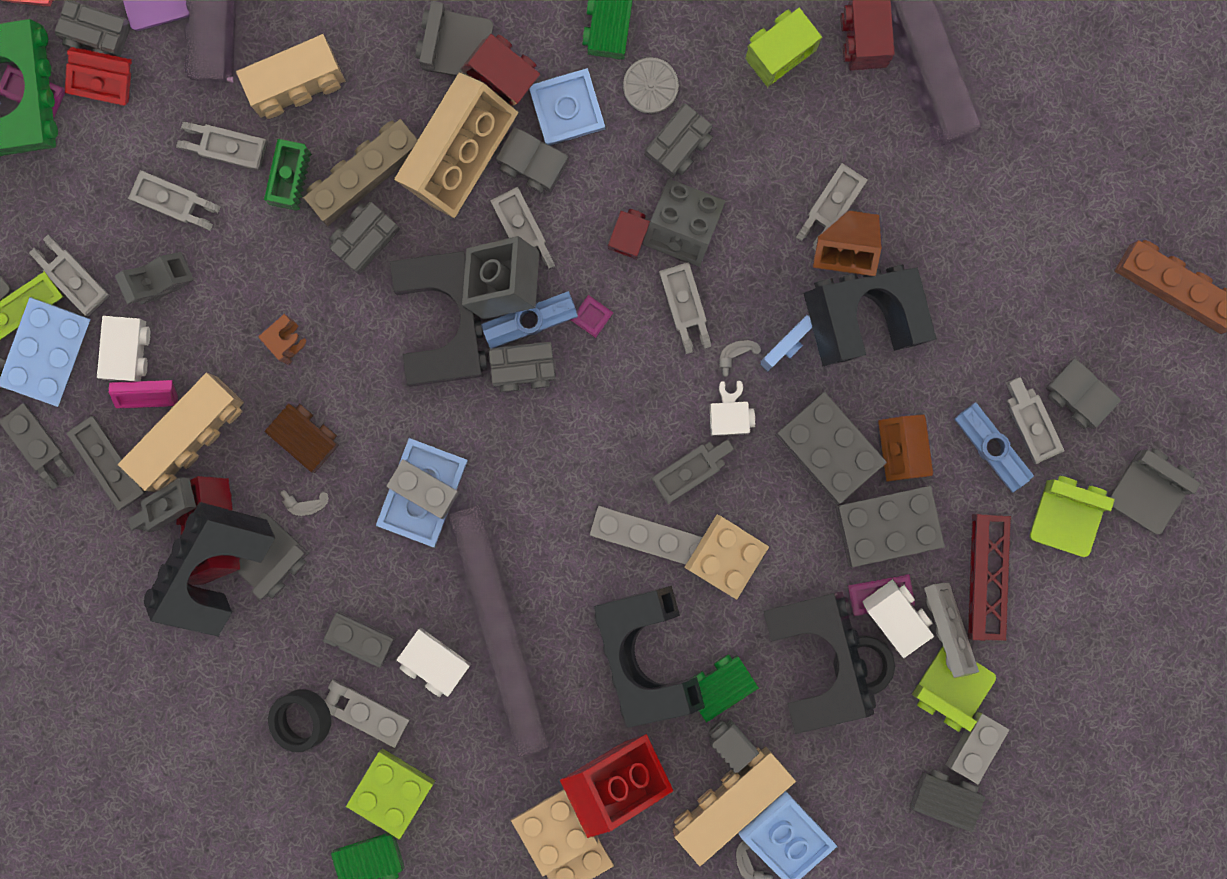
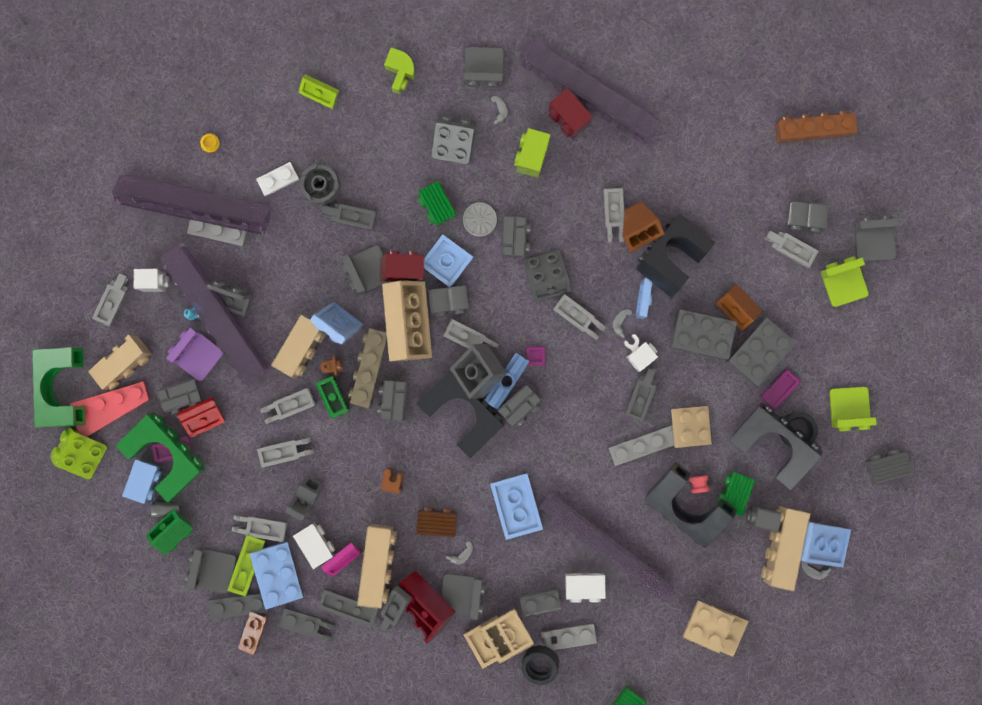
camera: 30 degrees left, 0 degrees up
(207, 534) = (429, 607): black arch -> none
(270, 646) = (498, 638): none -> tan bracket
(317, 134) = (333, 366): none -> dark orange hinge
(362, 79) = (336, 323): none -> light blue plate
(390, 793) = (612, 667): lime brick -> none
(423, 489) = (517, 504): light grey brick -> none
(616, 786) = (722, 581): red brick -> none
(629, 233) = (524, 301): dark red brick -> none
(682, 639) = (699, 484): none -> coral wheel
(898, 618) = (799, 395): white brick -> none
(951, 630) = (828, 381): light grey plate -> none
(977, 748) = (885, 432): light grey brick -> none
(979, 574) = (823, 343): dark red fence -> none
(1007, 463) = (771, 272): medium blue piece -> none

